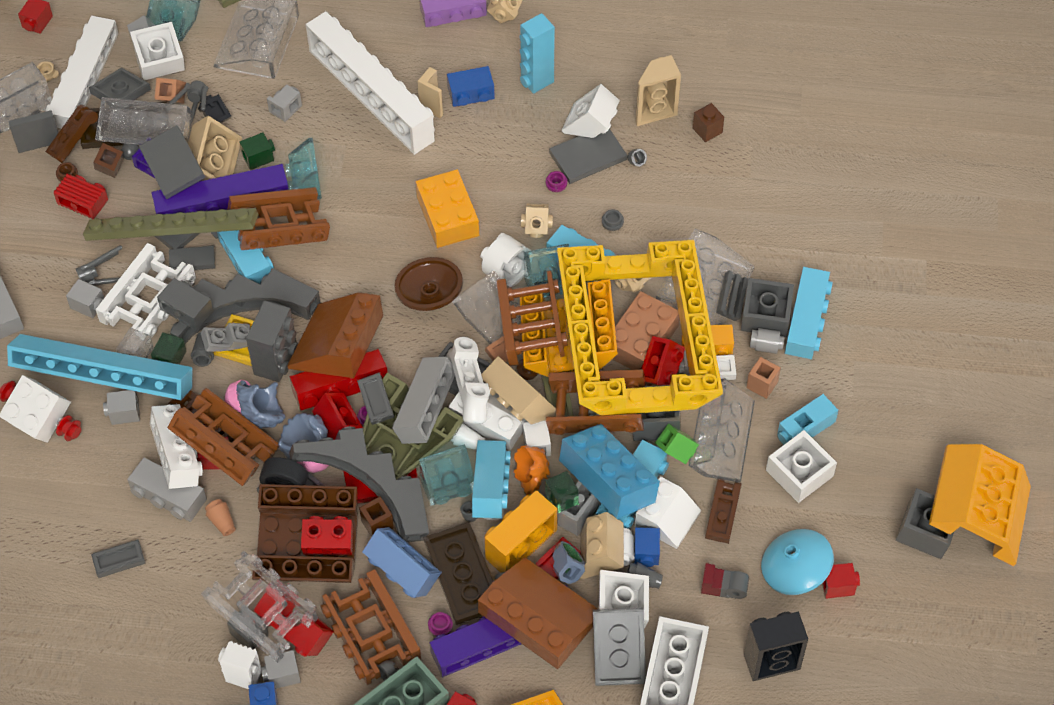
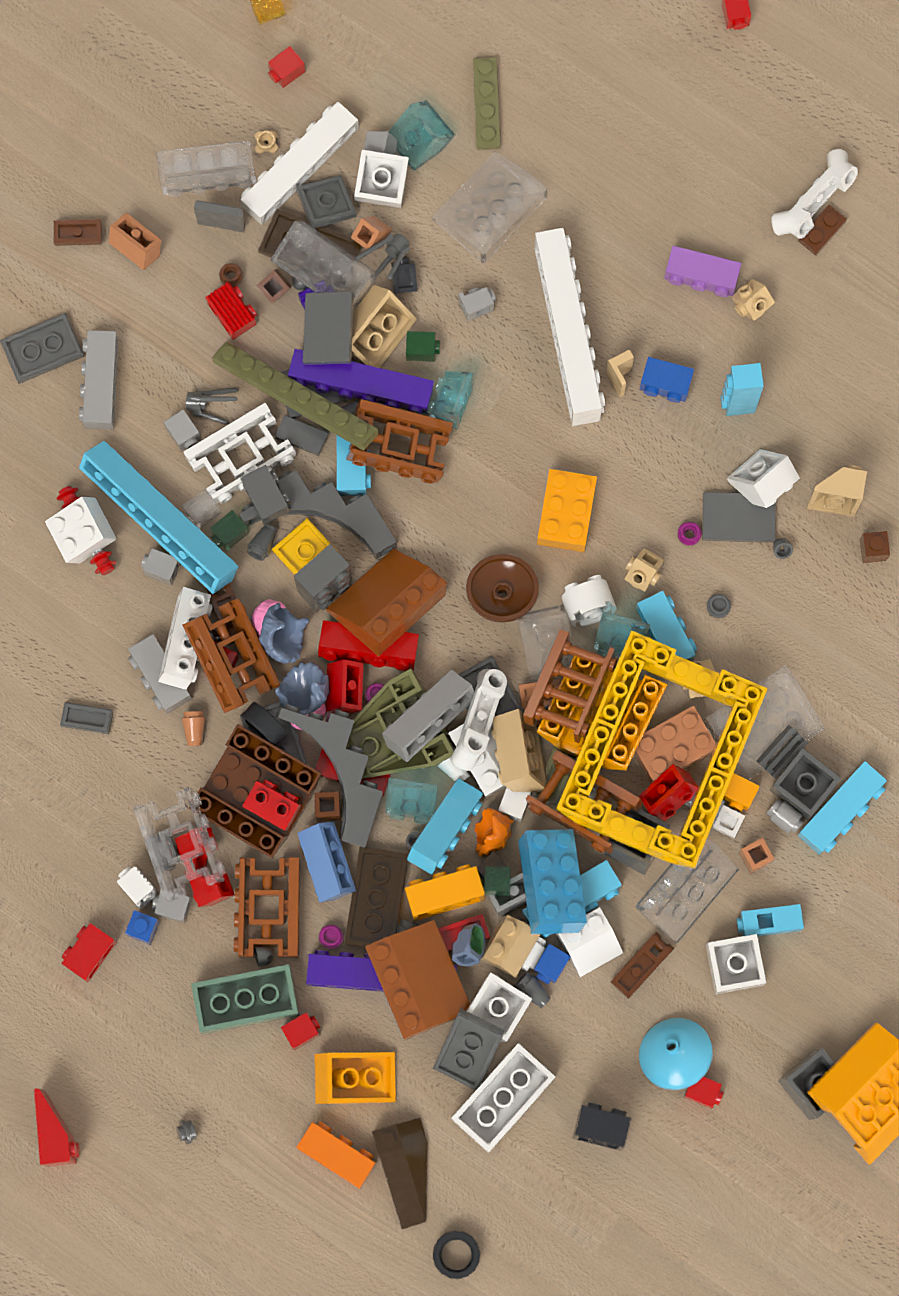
camera: 30 degrees right, 20 degrees up
(71, 132) = (254, 234): reddish brown plate -> none
(226, 338) = (289, 545): light grey slope -> none
(375, 398) = (386, 689): dark grey tile -> none
(677, 443) = (633, 883): bright green brick -> none
(724, 582) = (600, 1036): leg -> none

